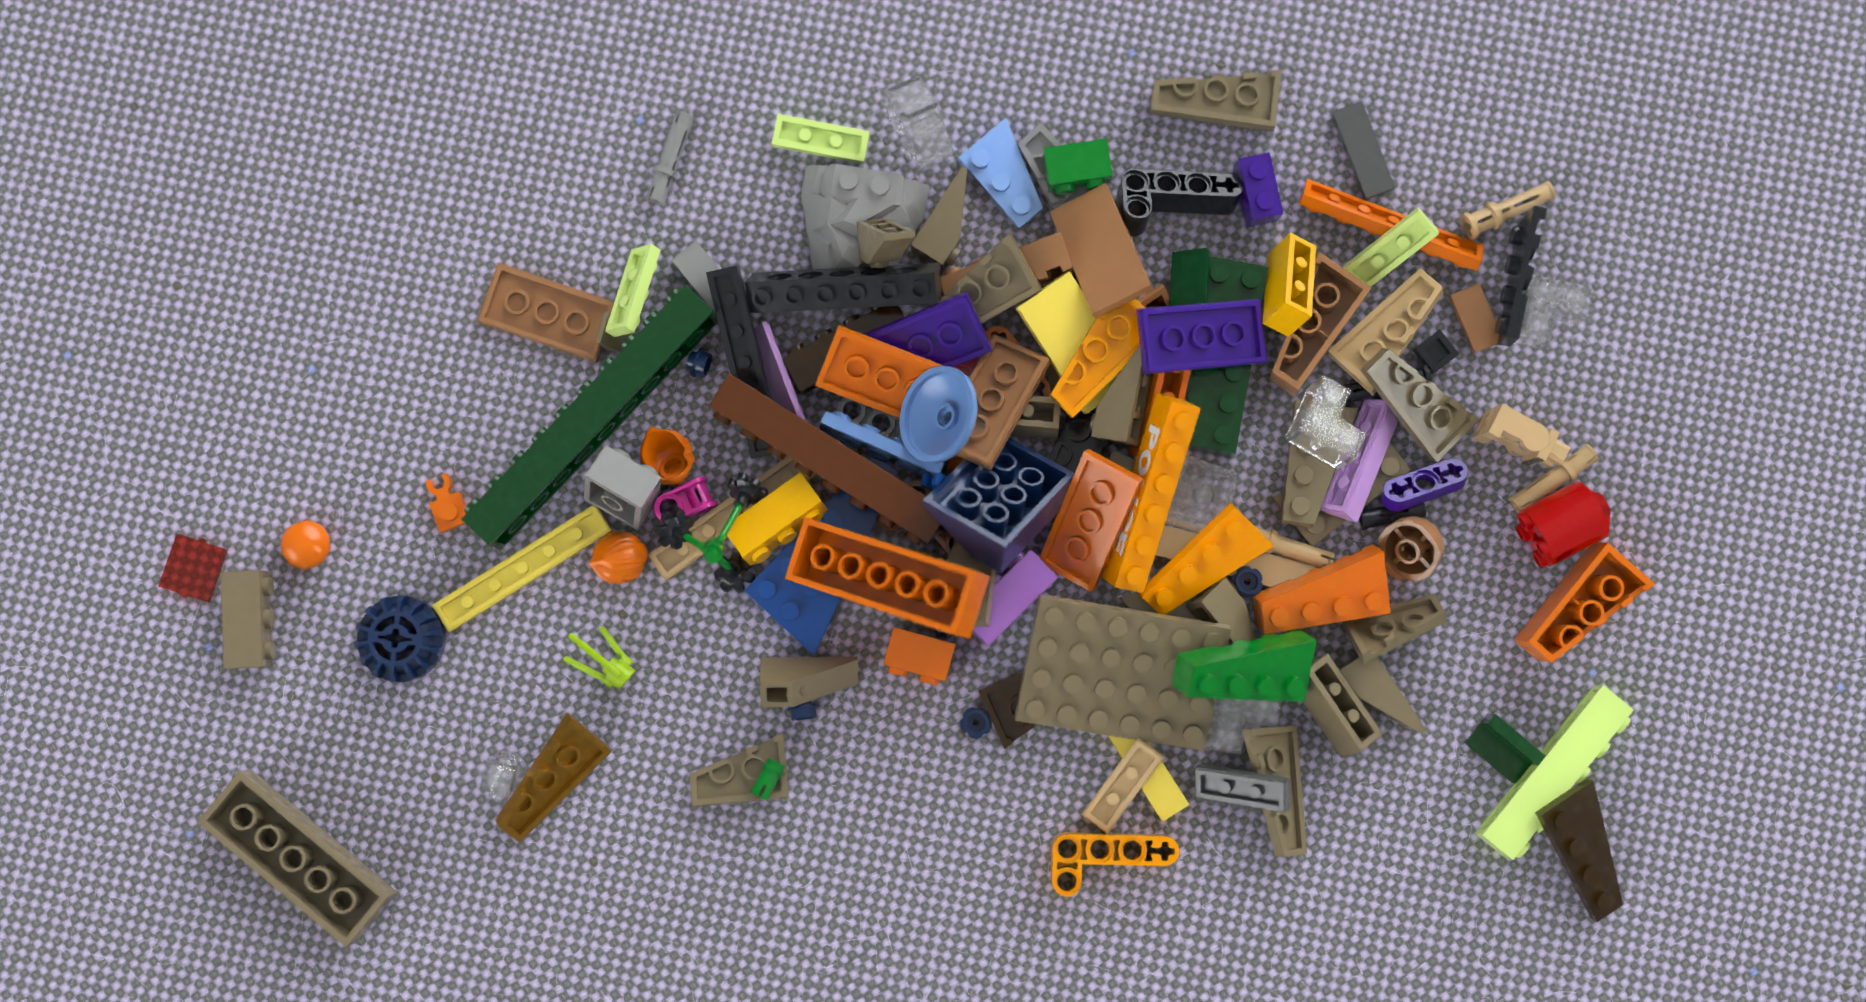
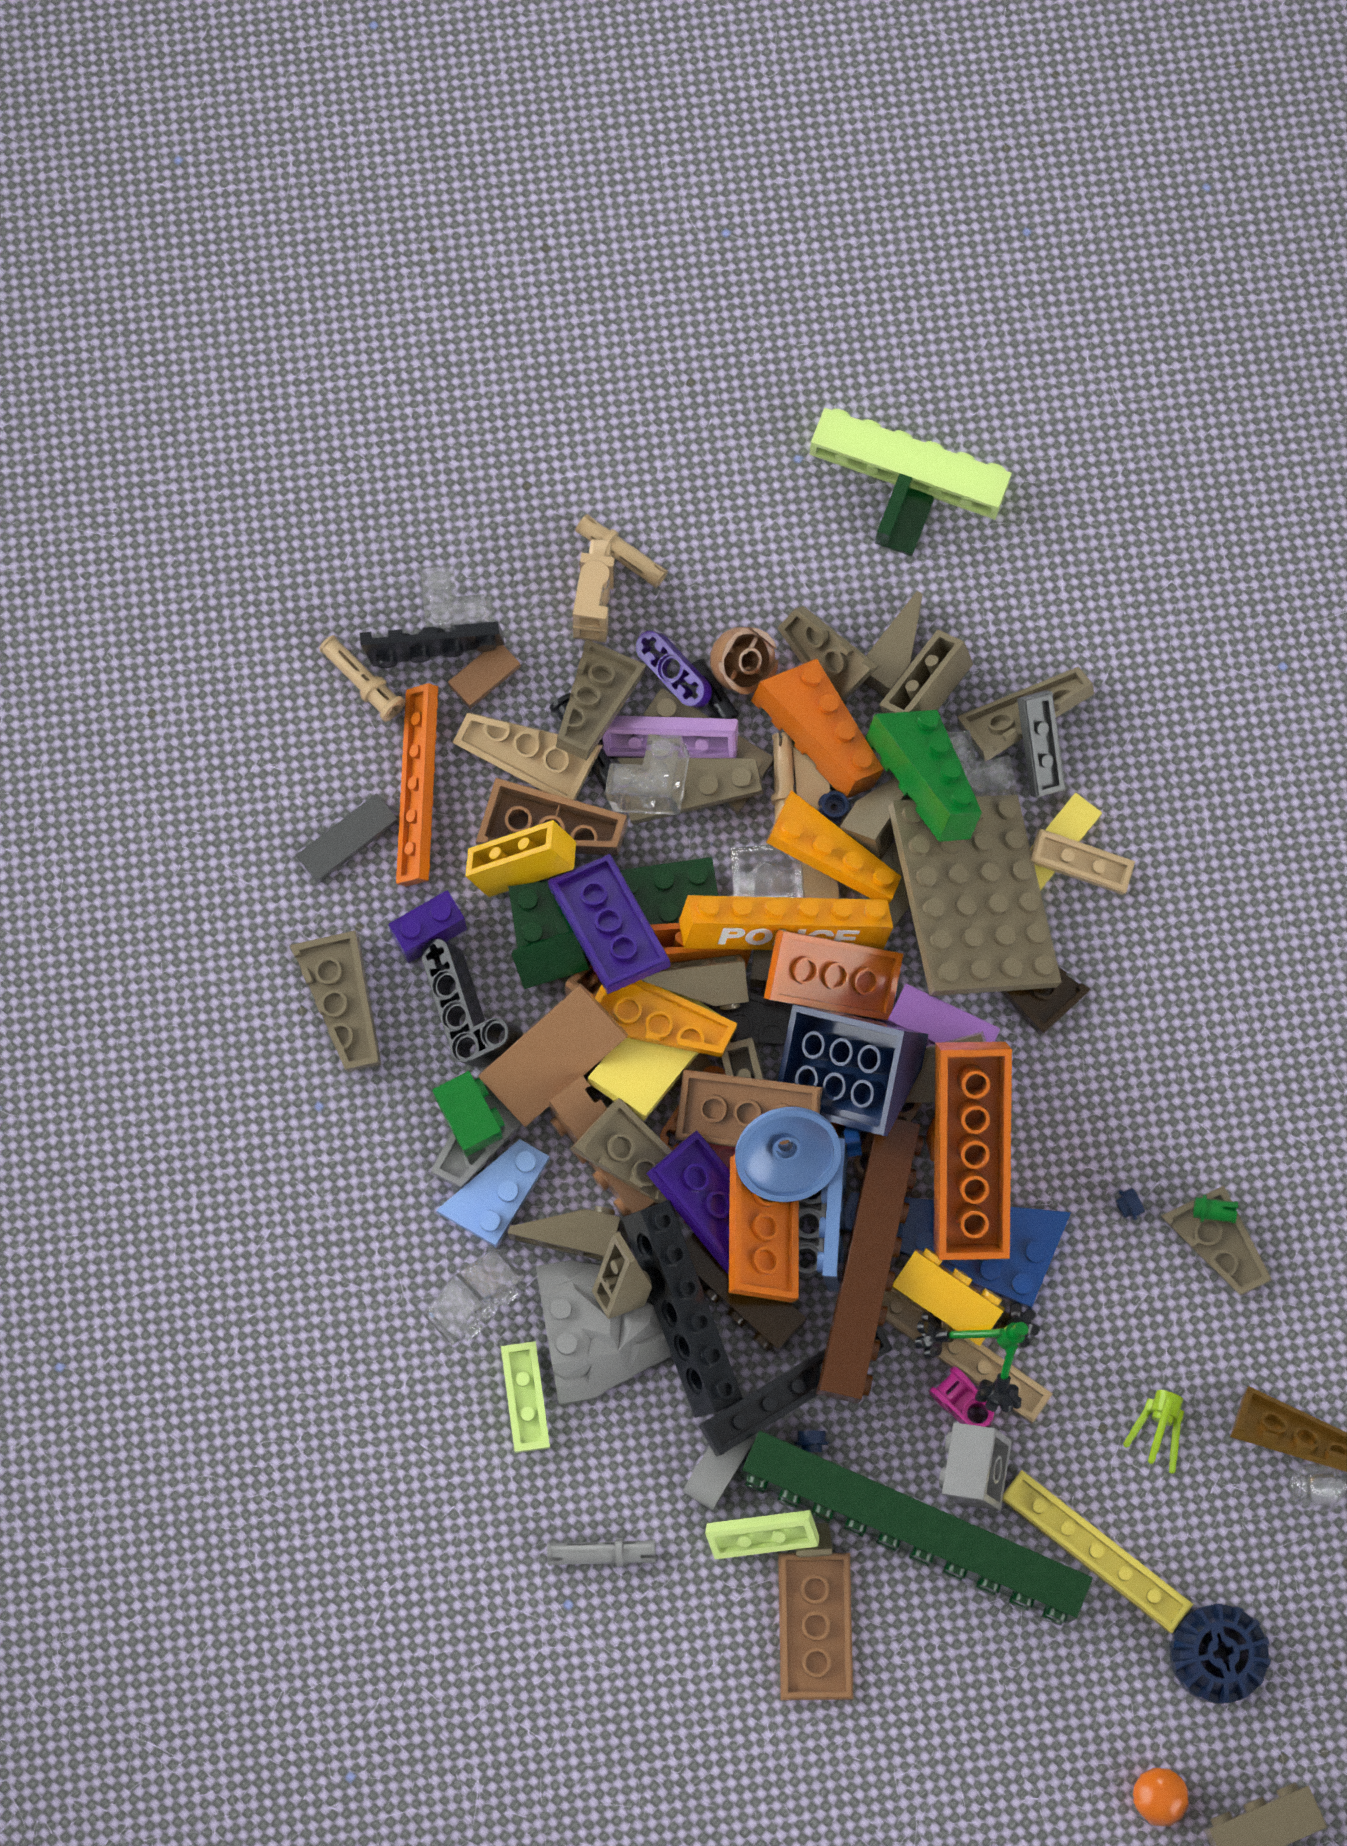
camera: 110 degrees left, 10 degrees down
(448, 507) = (1063, 1654): orange plate -> none
(619, 557) = (1047, 1451): orange hair -> none
(668, 454) = (922, 1435): orange hair -> none
(776, 374) = (799, 1348): lavender slope -> none
(803, 679) = (1102, 1215): dark tan slope -> none
(918, 655) = (1032, 1106): orange brick -> none
(967, 722) = (1075, 1018): dark blue plate -> none
(1113, 856) = (1155, 847): light orange beam -> none
(1392, 248) = (446, 773): yellowish green plate -> none
(1436, 351) = (533, 701): black plate -> none
(1564, 523) = (665, 525): red cylinder -> none
(1582, 601) = (736, 487): orange wedge -> none
(1582, 845) = (973, 415): dark brown wing -> none

